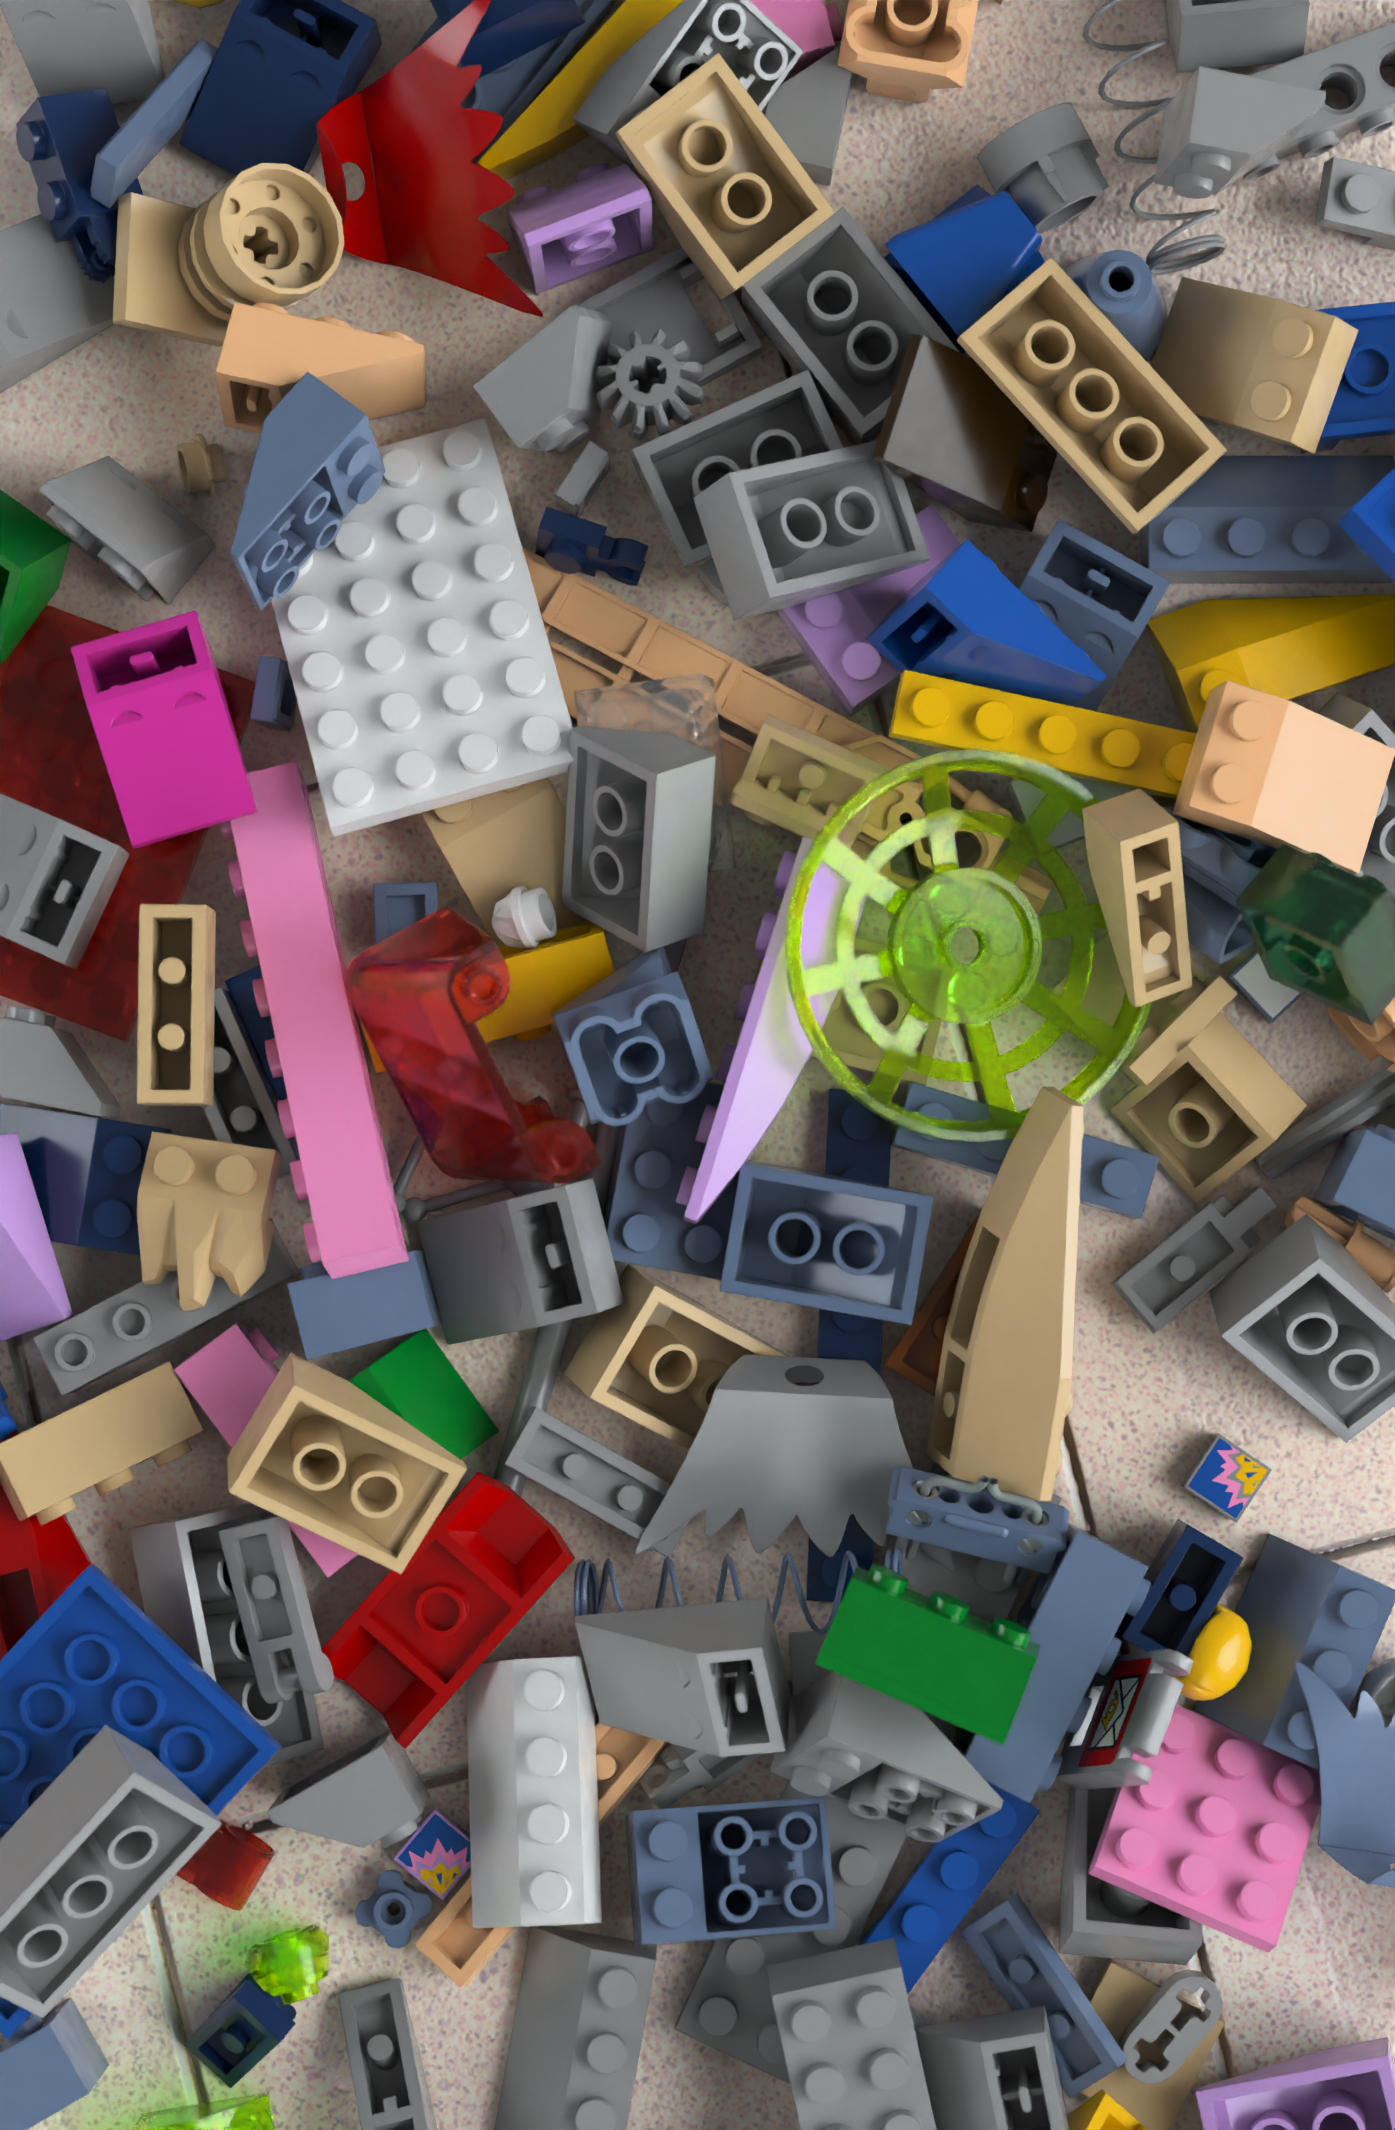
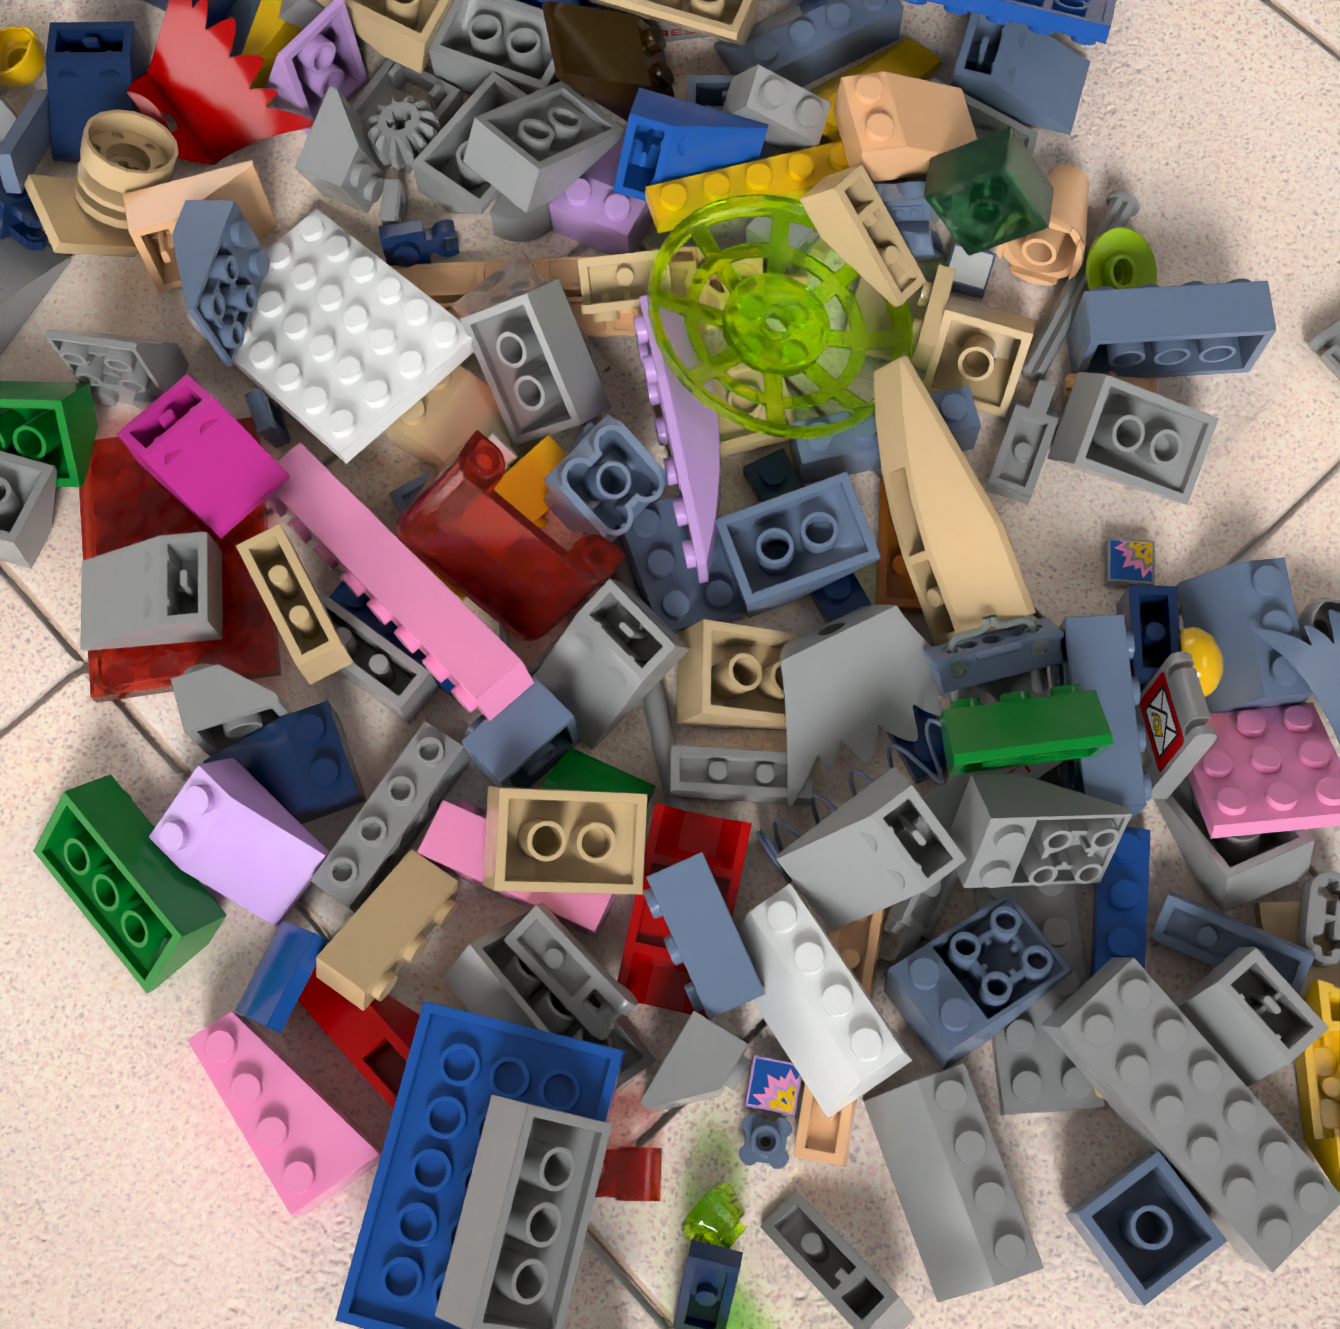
camera: 25 degrees left, 15 degrees down
(200, 465) = (154, 319): tan plate -> none
(205, 1214) = (384, 731): tan plate -> none
(443, 1662) = (703, 936): none -> sand blue brick
(1132, 653) = (792, 113): none -> light grey brick

